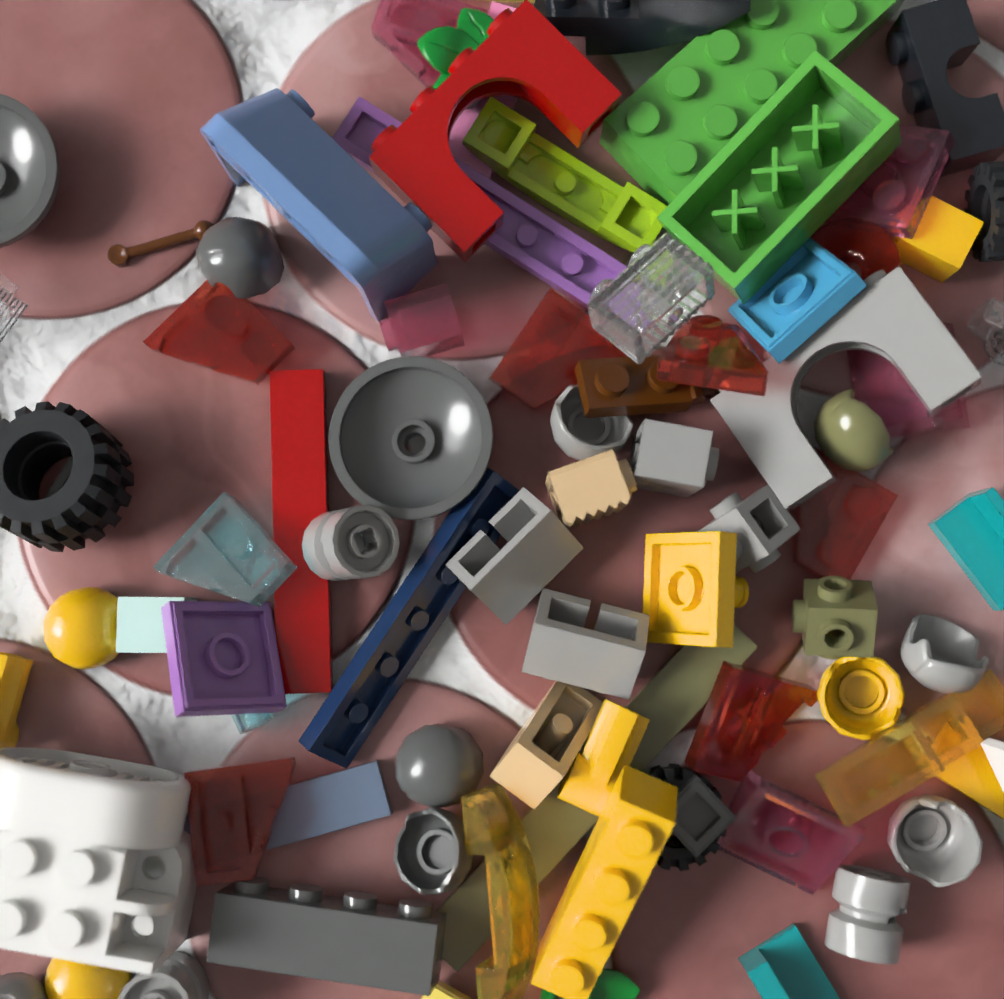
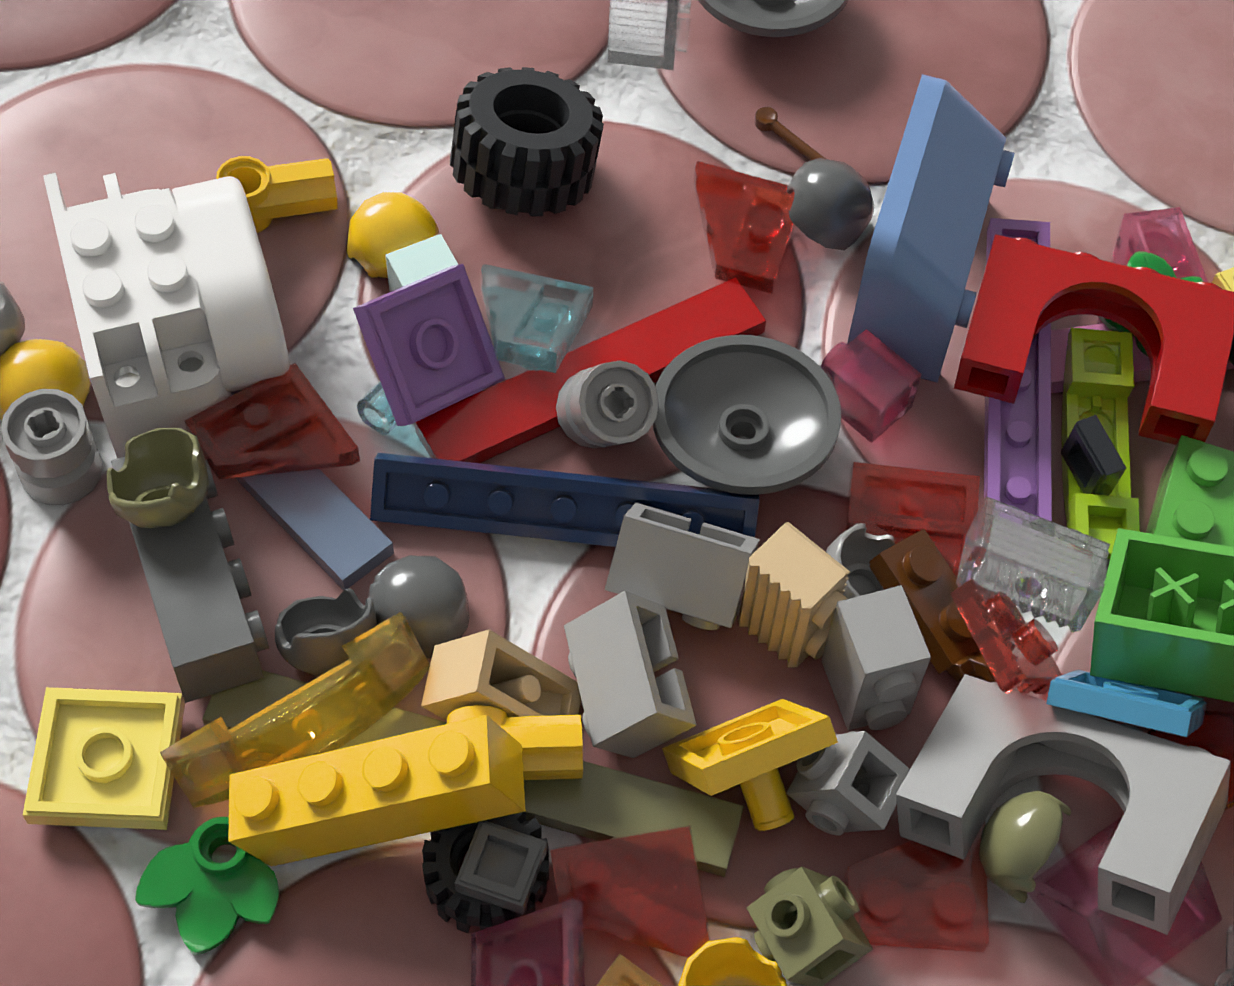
camera: 55 degrees right, 25 degrees down
(261, 944) = (160, 478): none -> olive hair
(582, 196) = (1092, 457): none -> black tile

